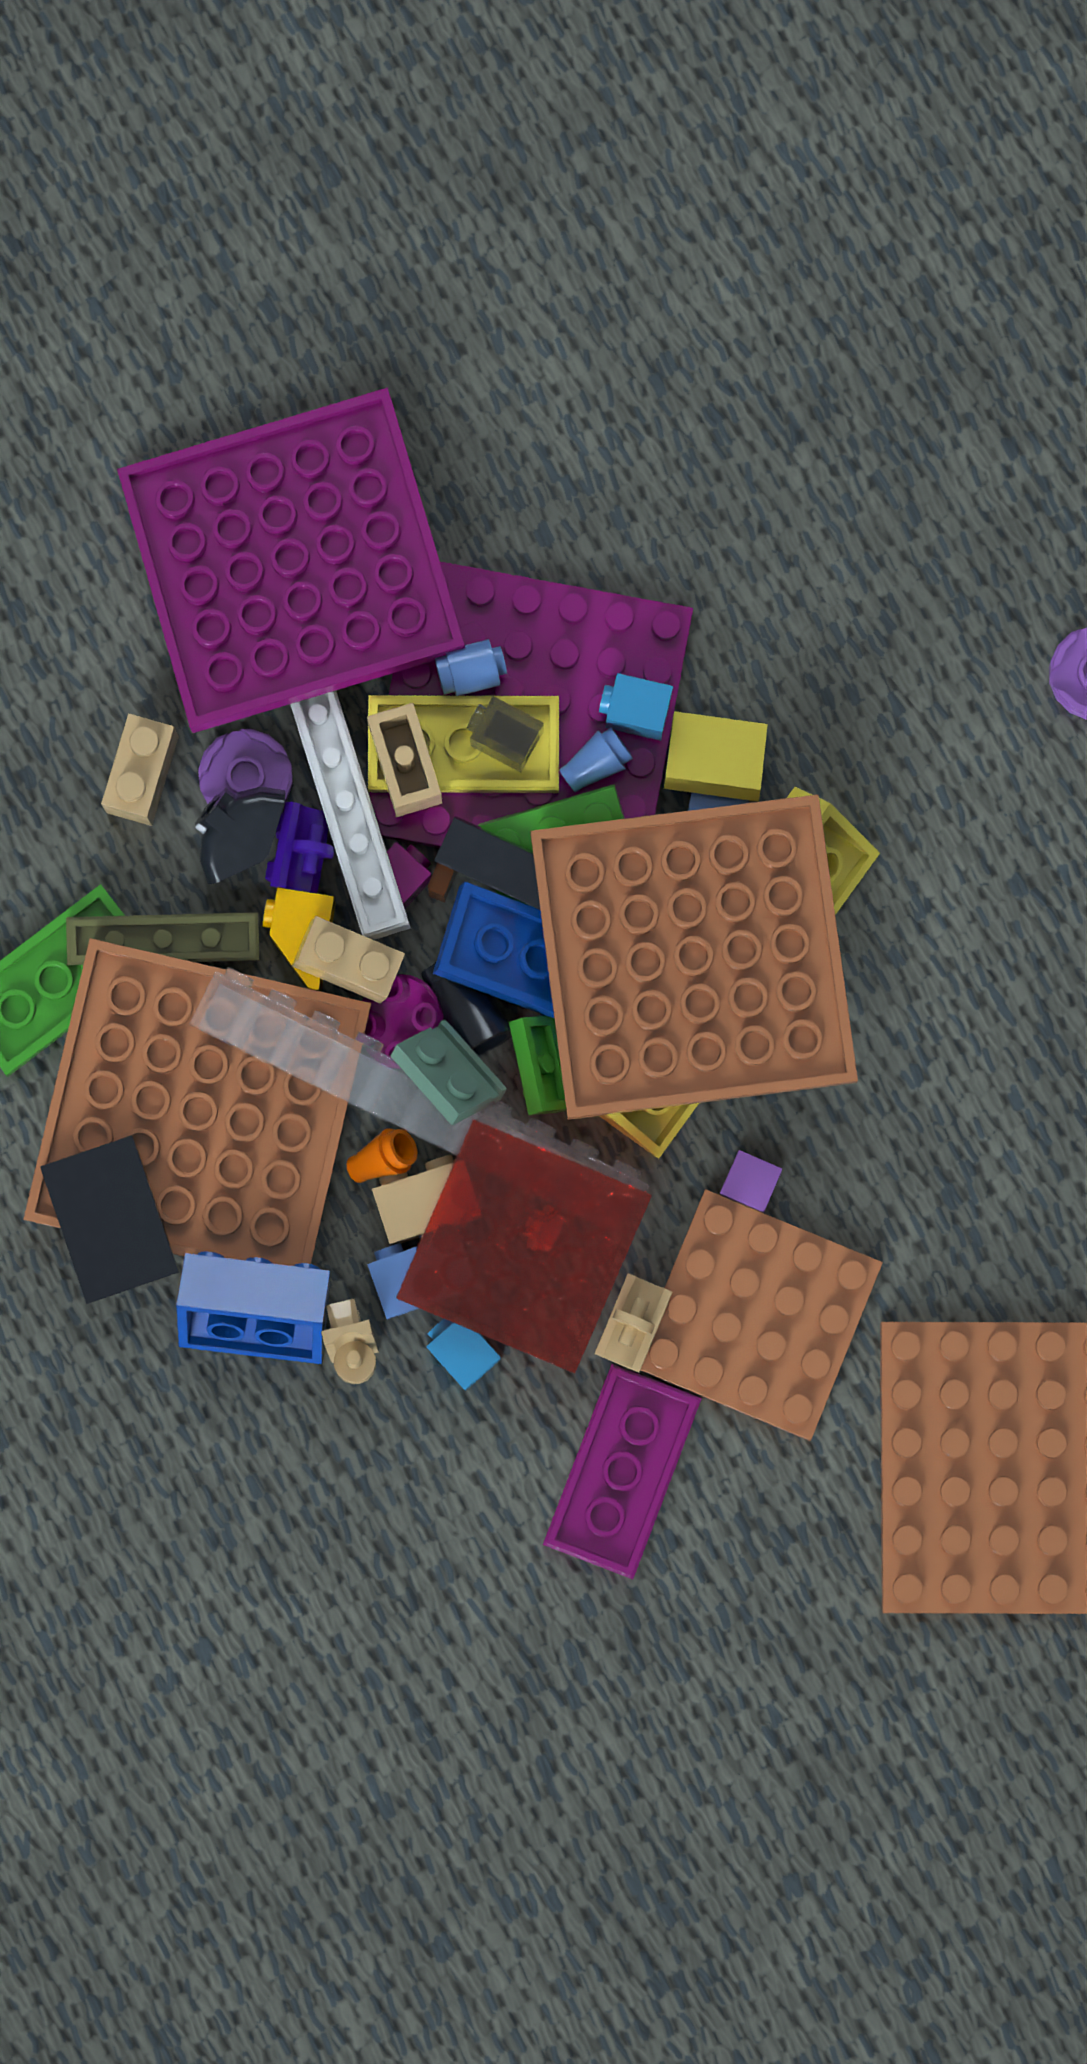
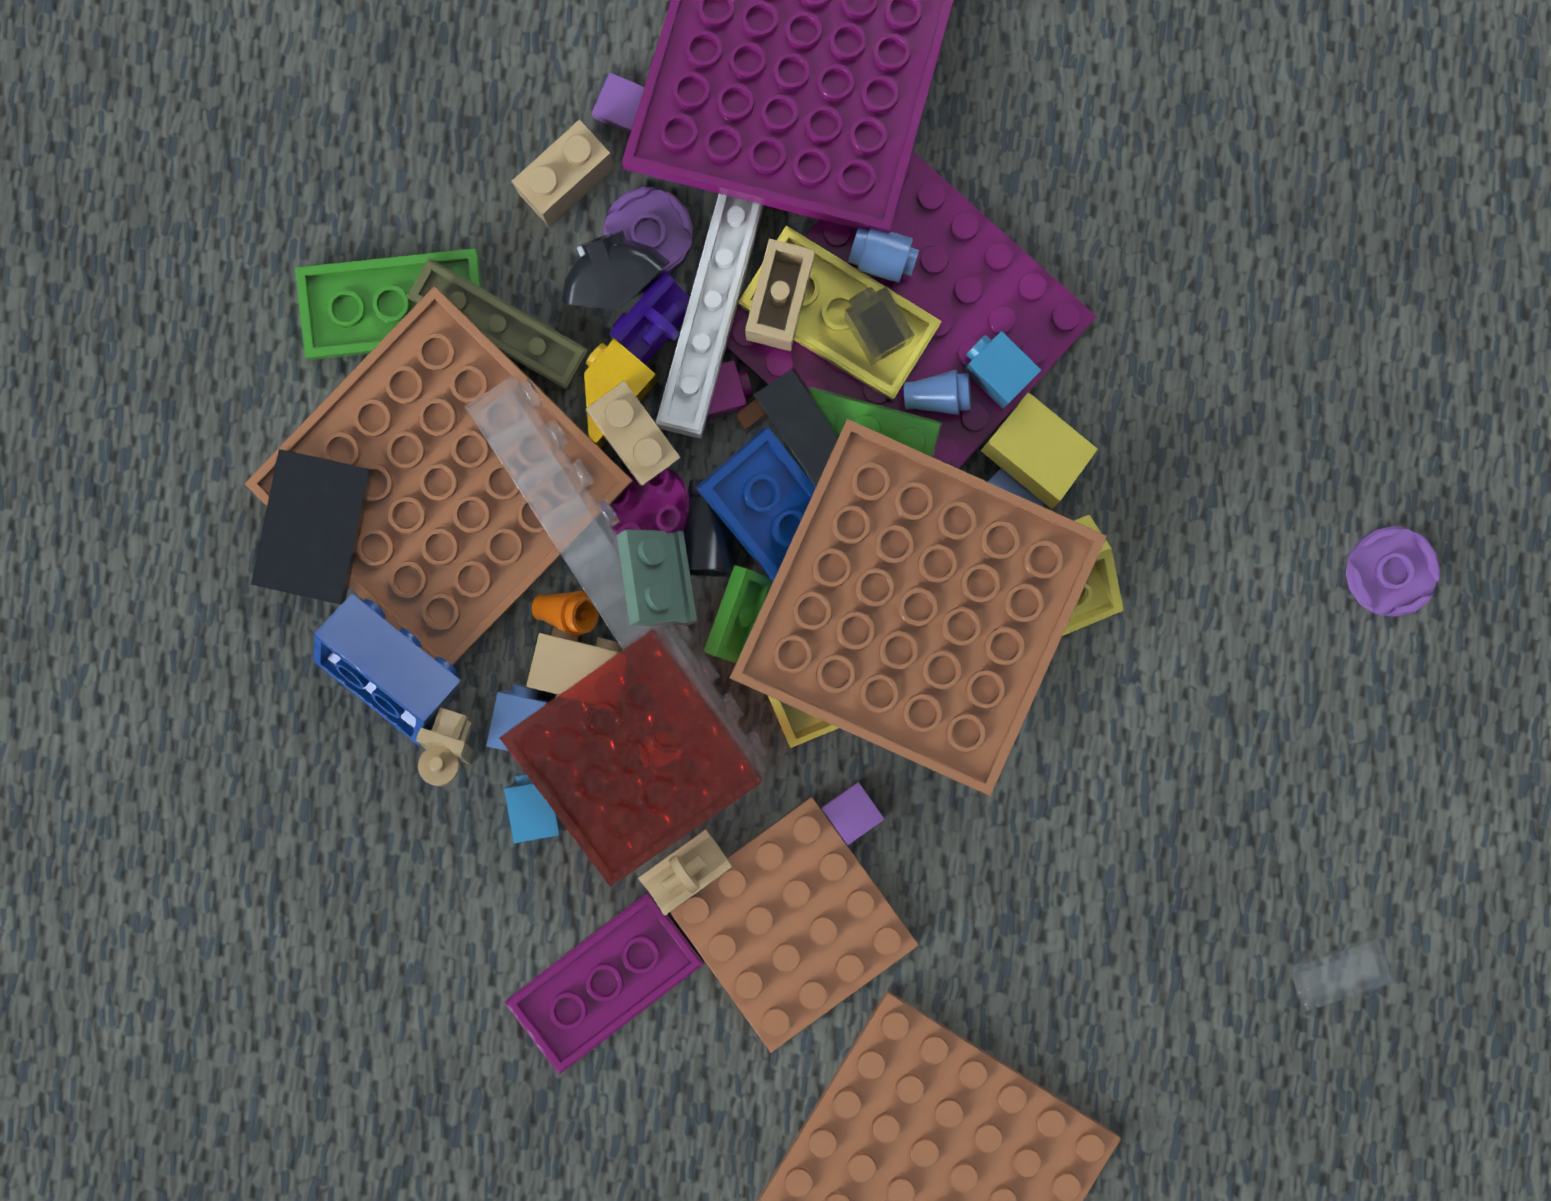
camera: 35 degrees right, 5 degrees up
(150, 676) = (618, 102): none -> medium lavender tile

